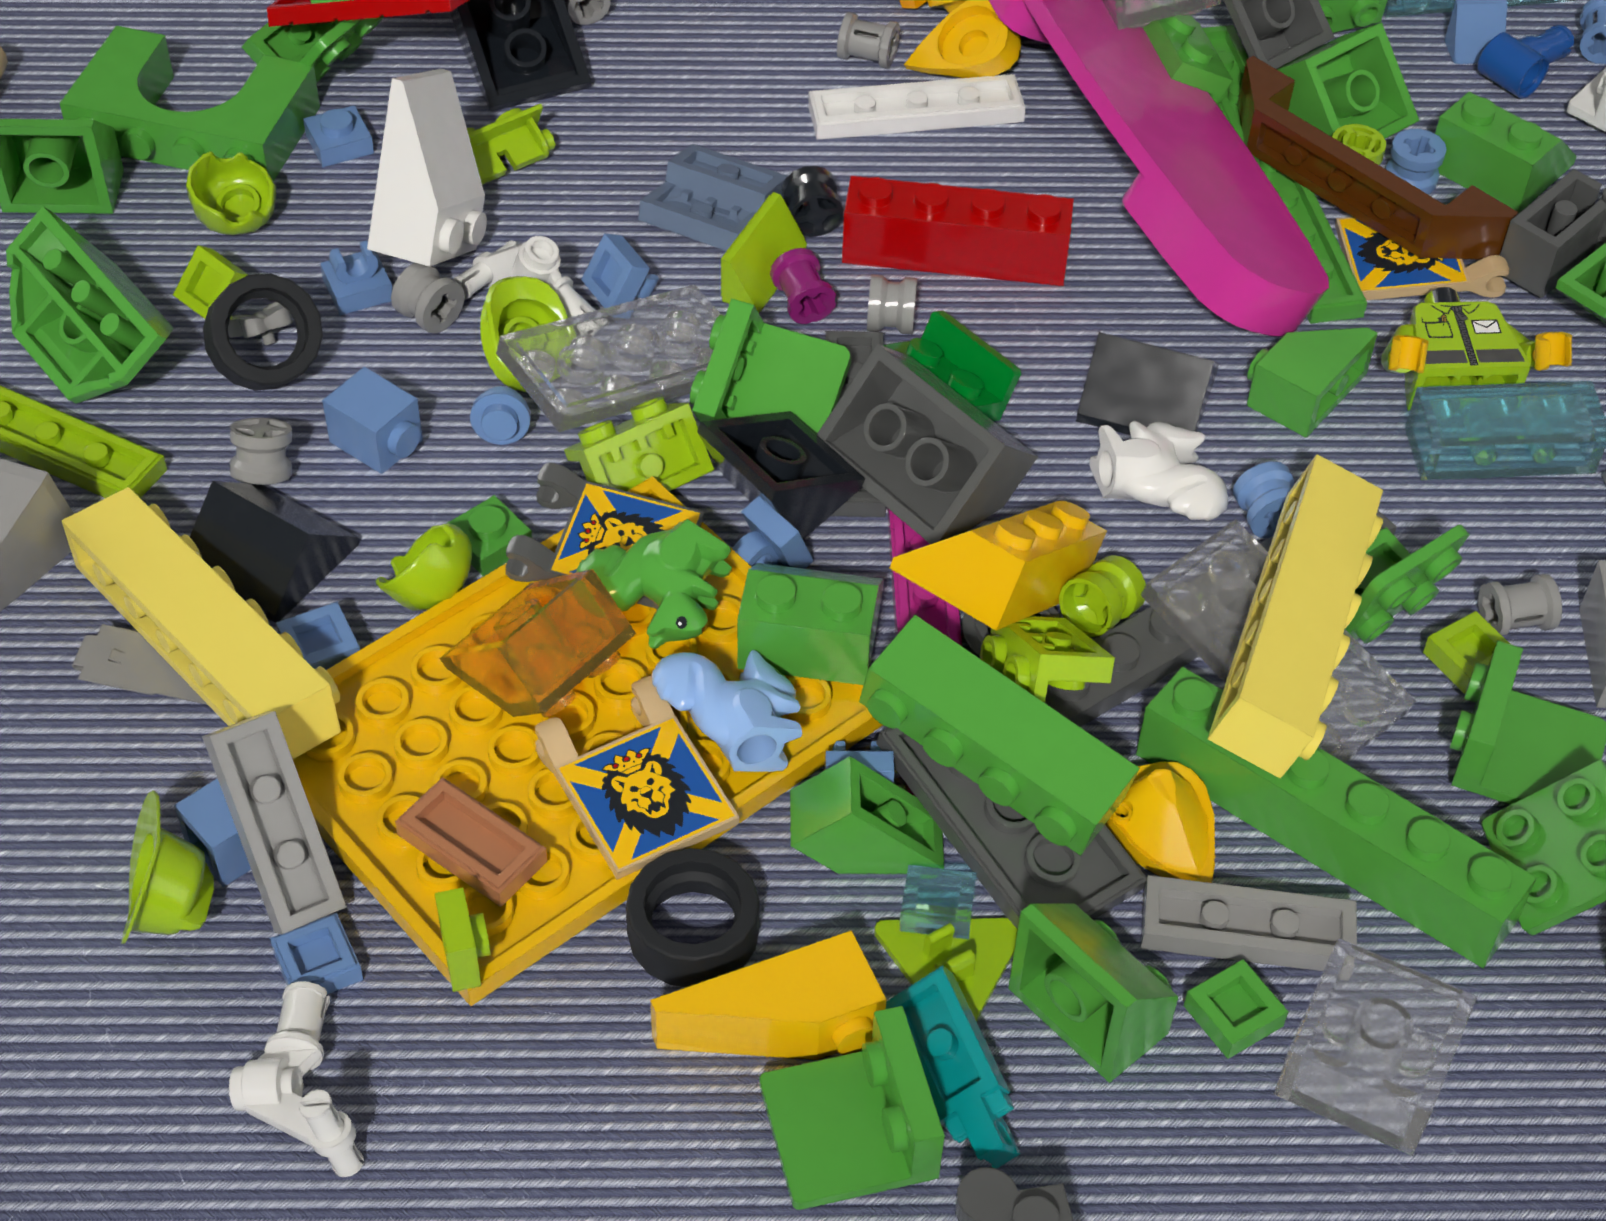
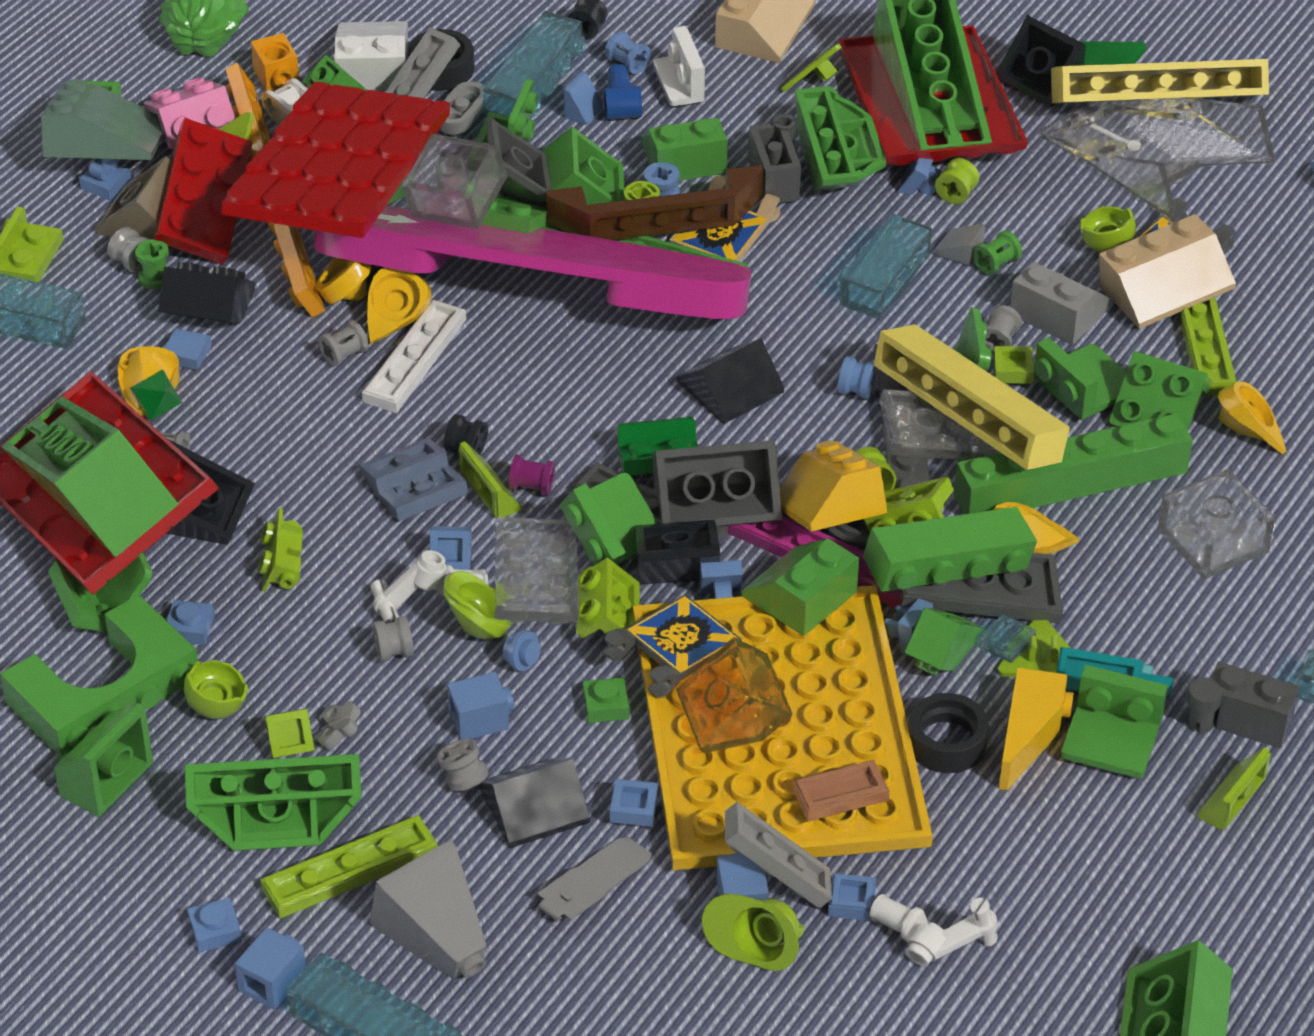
camera: 55 degrees left, 5 degrees down
(200, 620) = (591, 839): light yellow brick -> none
(290, 297) = (355, 728): black tyre -> none
(356, 280) = (337, 667): medium blue tile -> none
(427, 175) = (330, 586): white slope -> none
(430, 569) = (623, 727): lime hair -> none
(462, 937) = (911, 815): lime plate -> none
(641, 790) = (854, 707): flag -> none
(669, 571) = (730, 617): bright green animal -> none
(734, 714) = (845, 640): light blue animal -> none
(891, 304) = (582, 445): light grey wheel -> none
(957, 230) = (550, 389): red brick -> none
(1089, 987) = (1110, 606): bright green slope -> none
(1157, 470) = (794, 412): white animal -> none
(1235, 1008) = (1152, 564): bright green plate -> none
(1244, 923) = (1109, 534): light grey plate -> none
(1308, 375) = (785, 316): bright green slope -> none
(1467, 345) = (823, 247): torso -> none

